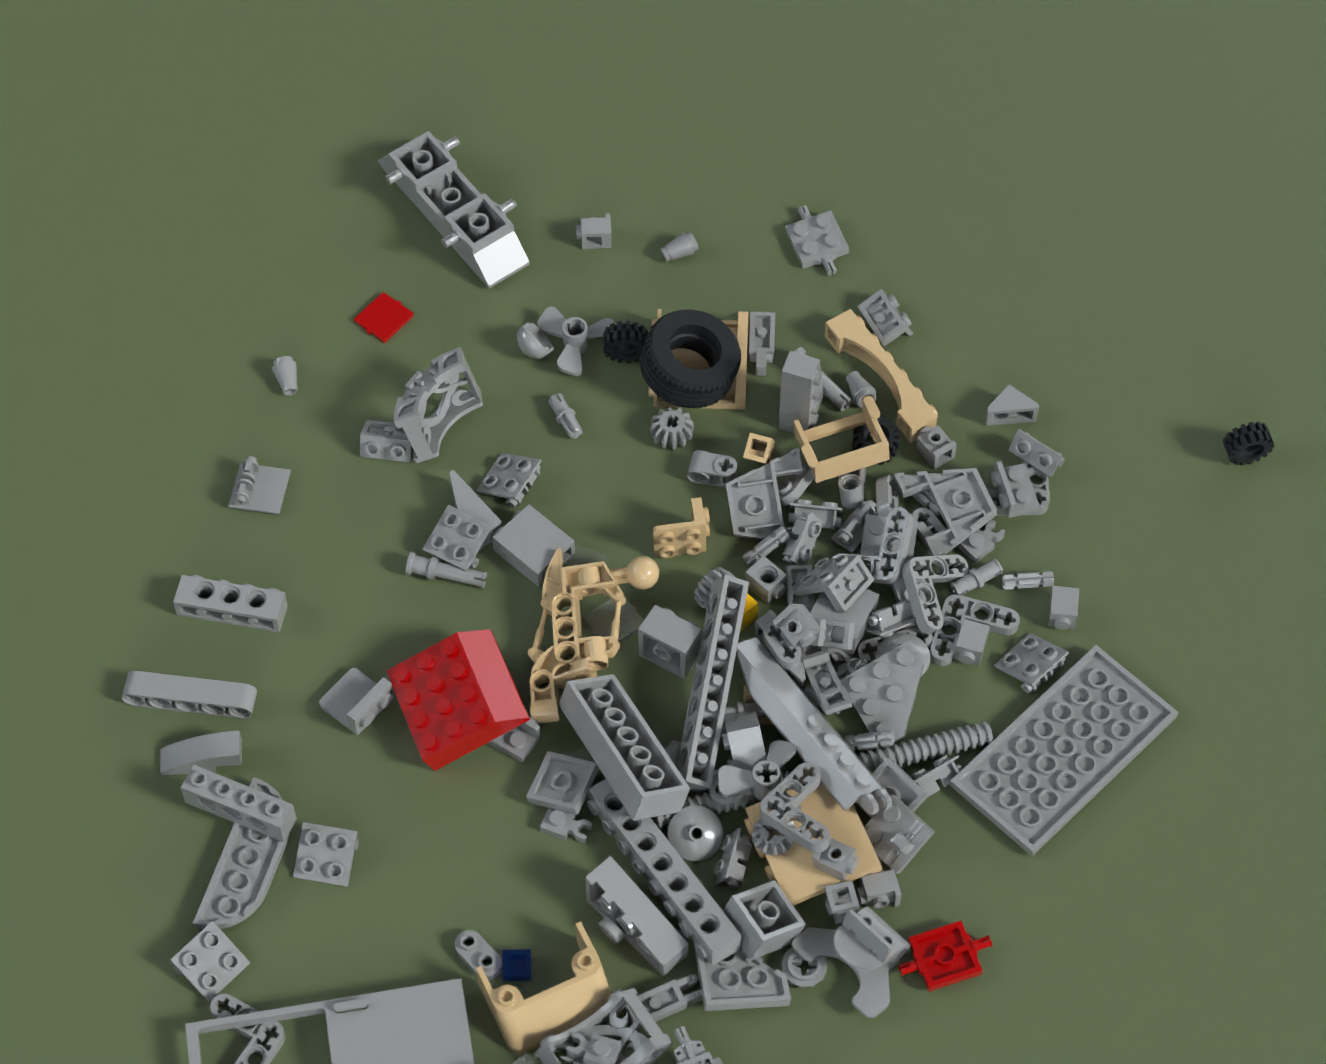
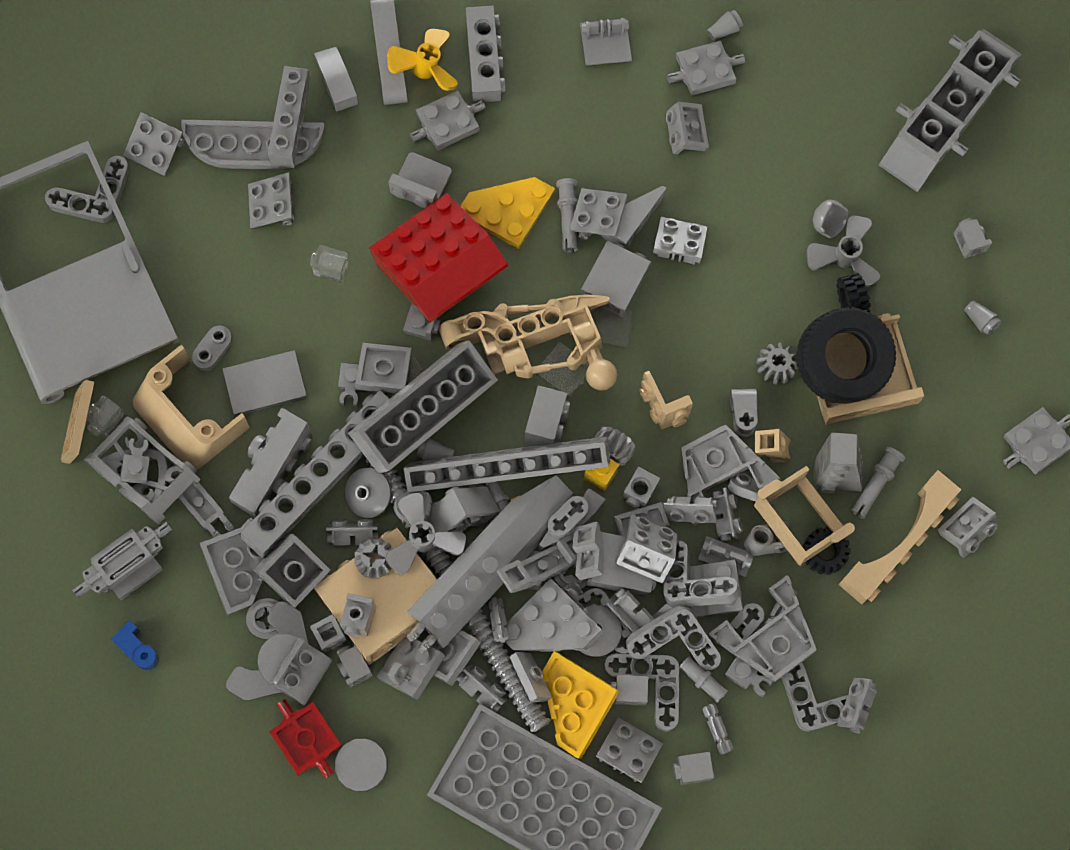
camera: 70 degrees right, 15 degrees up
(217, 656) = (423, 61): none -> yellow piece
(293, 659) = (447, 120): none -> light grey plate
(326, 406) = (705, 68): none -> light grey plate
(383, 317) = (817, 87): red piece -> none
(416, 622) = (509, 208): none -> yellow plate
(422, 810) = (329, 263): none -> clear brick
(427, 432) = (750, 145): light grey fence -> none
(517, 965) = (208, 380): clear blue plate -> none
(537, 910) = (264, 383): none -> light grey tile
(565, 416) = (760, 269): light grey axle -> none
(761, 340) = (903, 418): light grey hinge -> none
(766, 546) = (676, 479): light grey axle -> none
(788, 811) = (393, 559): light grey beam -> none
(806, 625) = (582, 524): light grey brick -> none
(859, 388) = (877, 523): light grey cone -> none
(886, 495) = (762, 575): light grey beam -> none
(935, 446) = (831, 613): light grey brick -> none
(935, 725) = (530, 677): none -> light grey plate
(972, 693) = (577, 703): none -> yellow plate
(985, 910) = (361, 765): none -> light grey tile
(1011, 408) = (904, 669): light grey slope -> none
(1015, 489) = (809, 693): light grey bracket -> none

